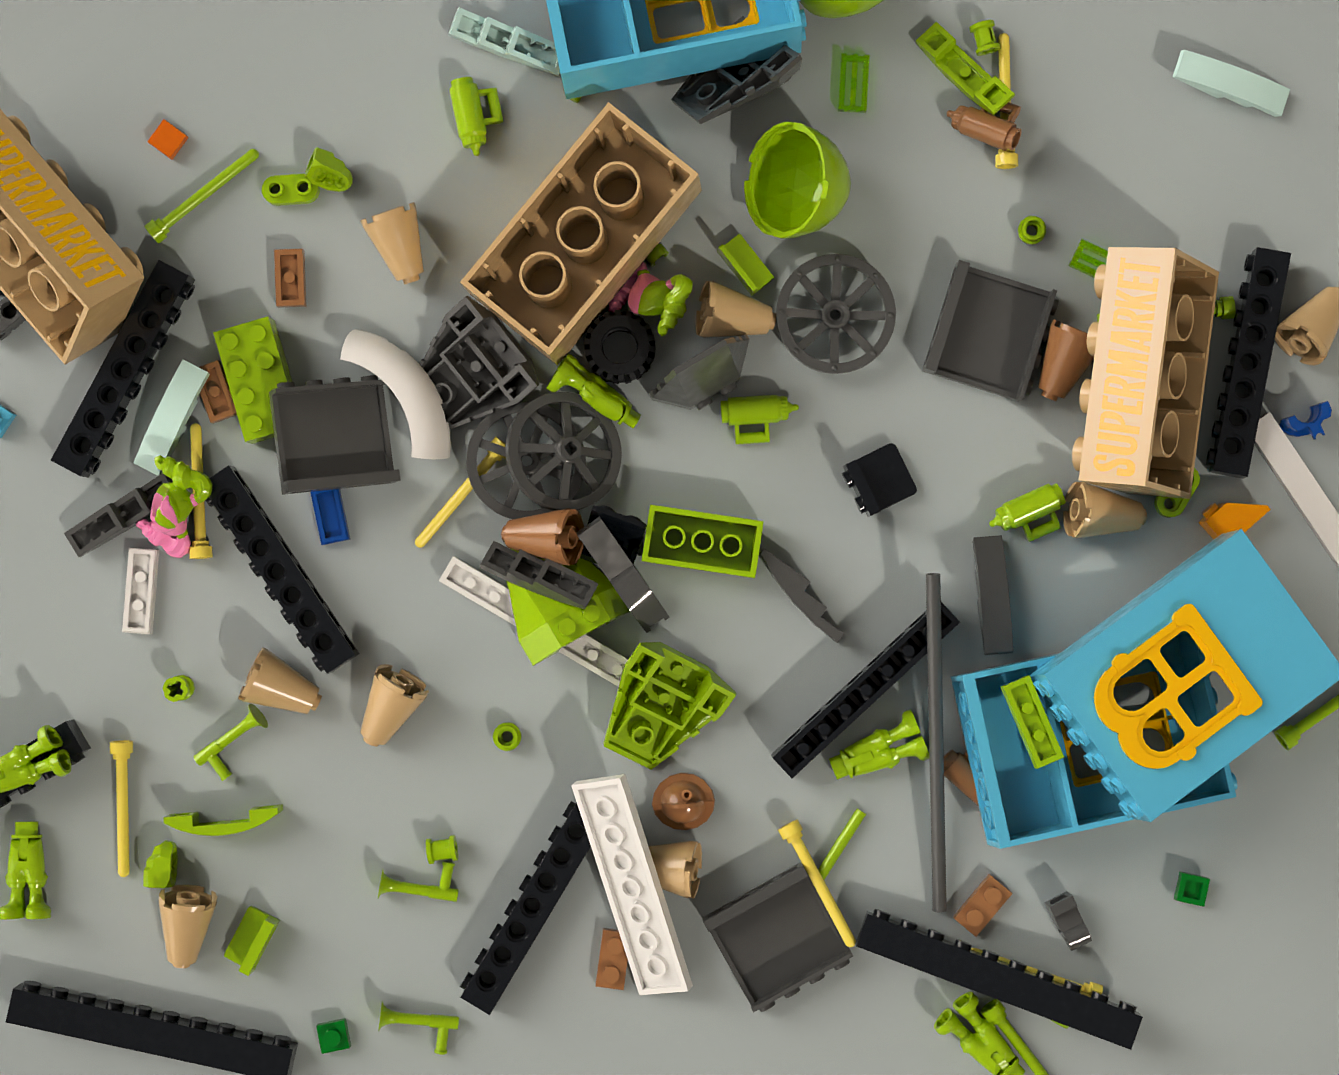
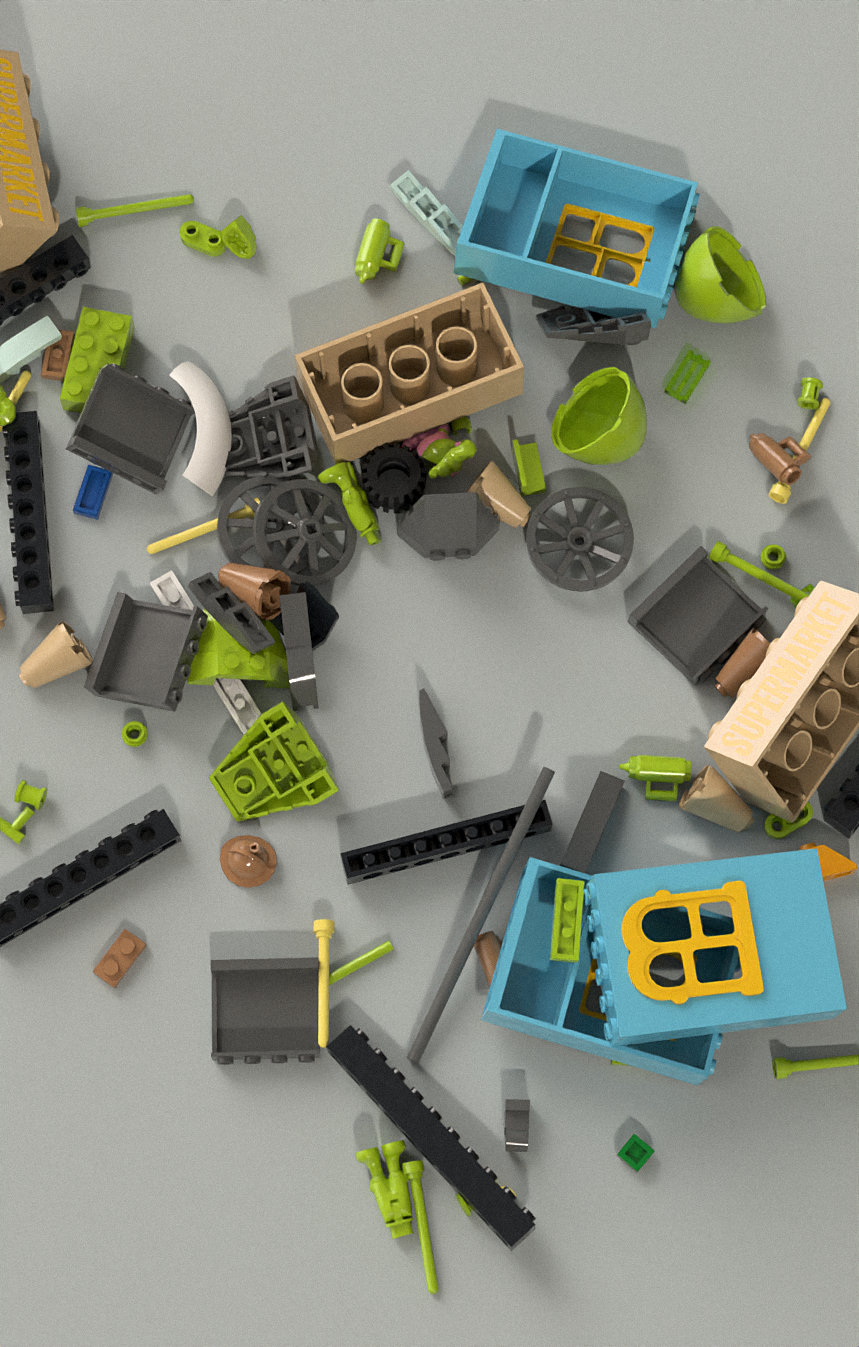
camera: 20 degrees right, 15 degrees down
(168, 139) = (130, 156): orange tile -> none
(290, 278) = (165, 301): medium nougat plate -> none
(398, 241) = (264, 311): tan cone -> none
(476, 654) = (146, 653): none -> dark grey panel
(632, 885) = (169, 897): white plate -> none
(678, 867) = (207, 902): tan cone -> none
(702, 541) = (377, 658): lime brick -> none
(755, 410) = (474, 581): lime piece -> none
(874, 751) = (427, 898): lime piece -> none
(879, 479) = (546, 685): black bracket -> none
(962, 70) = (778, 407): lime slope -> none
(981, 254) = (722, 553): none -> lime piece
(982, 905) = (451, 1075): medium nougat plate -> none

